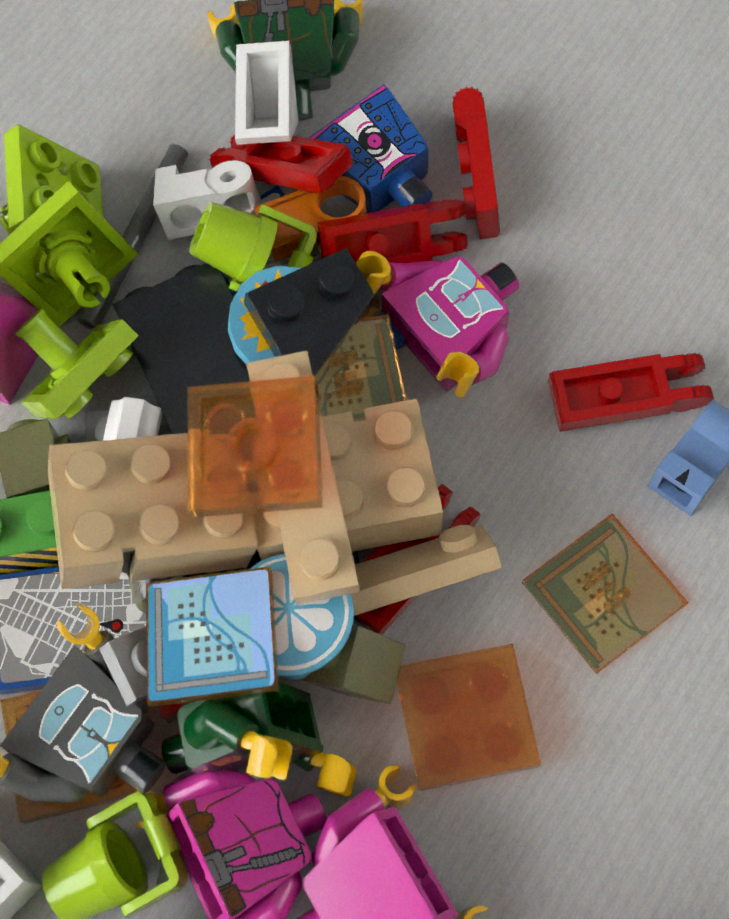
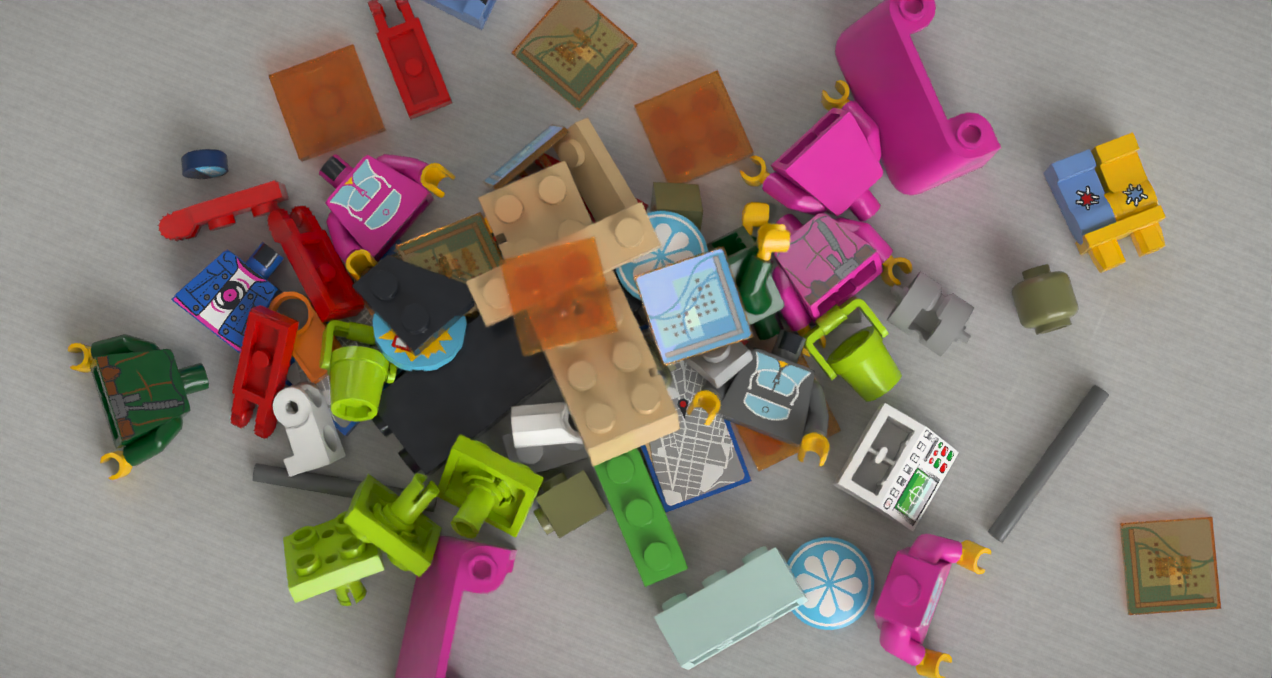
camera: 110 degrees left, 15 degrees up
(265, 93) = (209, 394): white slope -> none
(466, 487) = (525, 157): none -> piece
(535, 151) = (204, 164): none -> dark blue tile
(585, 294) = (327, 103): none -> clear orange plate

